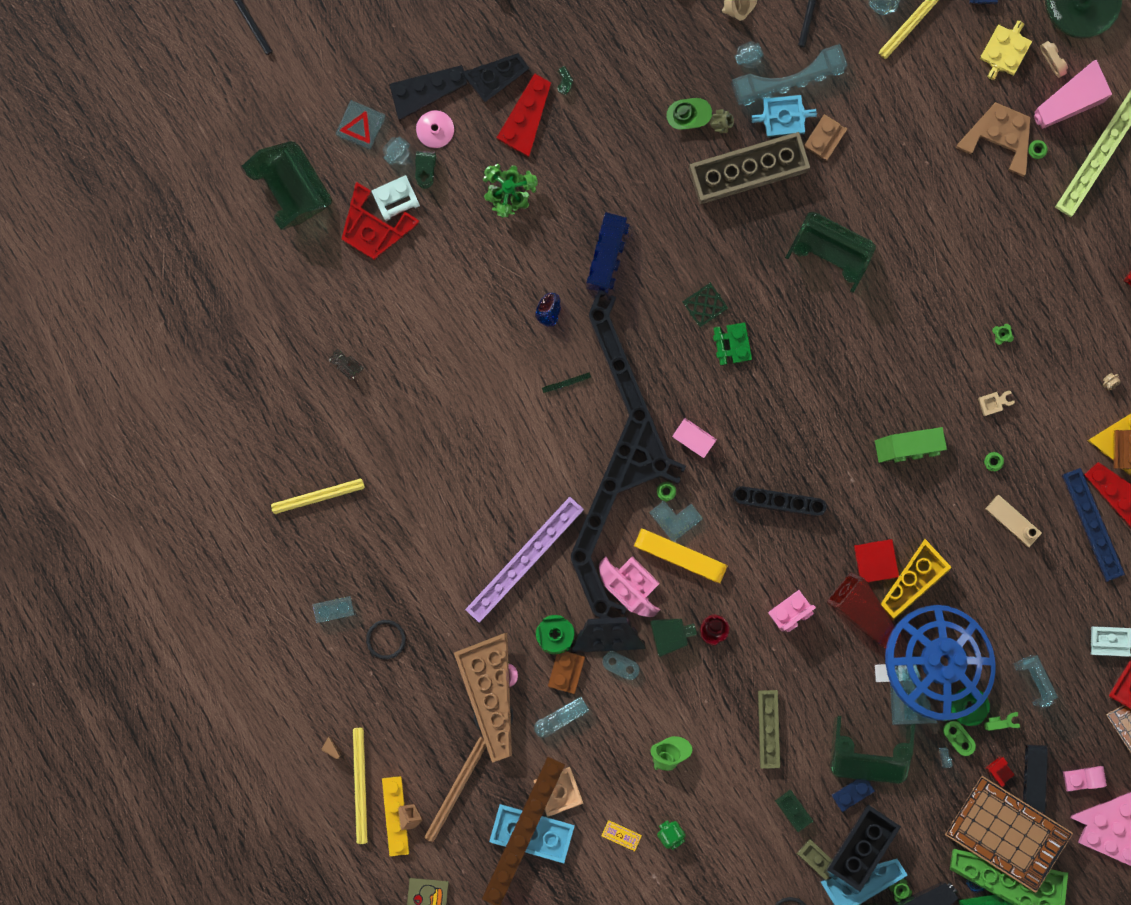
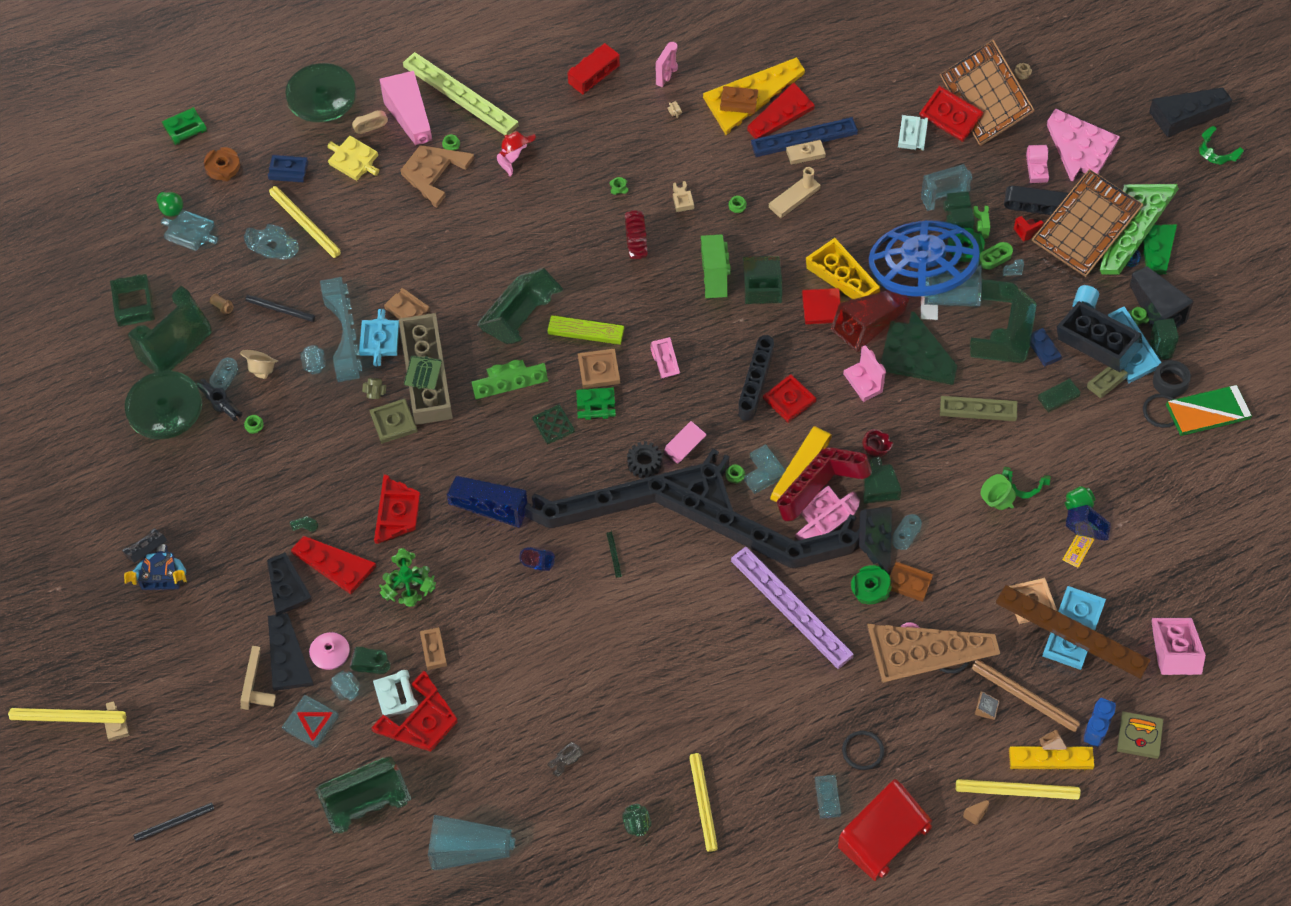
camera: 80 degrees left, 25 degrees down
(251, 282) = (465, 842): none -> clear light blue slope
(289, 437) = (636, 820): none -> clear green head
(302, 665) = (883, 829): none -> red windscreen
(378, 62) = (248, 695): none -> tan piece
(427, 858) = (1099, 722): none -> blue brick
(441, 753) = (987, 706): none -> slope
(444, 225) = (433, 648): none -> medium nougat plate
(560, 718) = (956, 588): clear light blue piece -> none
(589, 166) = (396, 510): none -> red wing
(646, 844) = (1088, 523): none -> clear blue slope
(662, 573) = (816, 476): none -> dark red beam
(670, 5) = (253, 419): none -> bright green plate
(671, 388) = (644, 450): none -> black tyre
(672, 778) = (1045, 480): none -> green helmet
(689, 113) = (361, 413): bright green piece -> none
(690, 146) = (393, 421): none -> olive tile
(736, 166) = (422, 372): none -> clear green piece
(752, 252) = (509, 377): none -> bright green bracket
(761, 537) = (789, 398): none -> red tile
(772, 341) = (598, 368): none -> medium nougat plate
(791, 407) = (665, 357): none -> bright pink plate
(819, 322) = (586, 330): none -> lime tile
(830, 662) = (916, 353): none -> clear green wing
(901, 496) = (762, 280): none -> clear green slope
(912, 835) = (1087, 295): none -> medium azure piece
(935, 359) = (636, 234): none -> dark red gear
(1019, 695) = (958, 209): none -> clear green piece
(1036, 215) = (511, 149): none -> hair
(1072, 528) = (805, 152): none -> tan plate

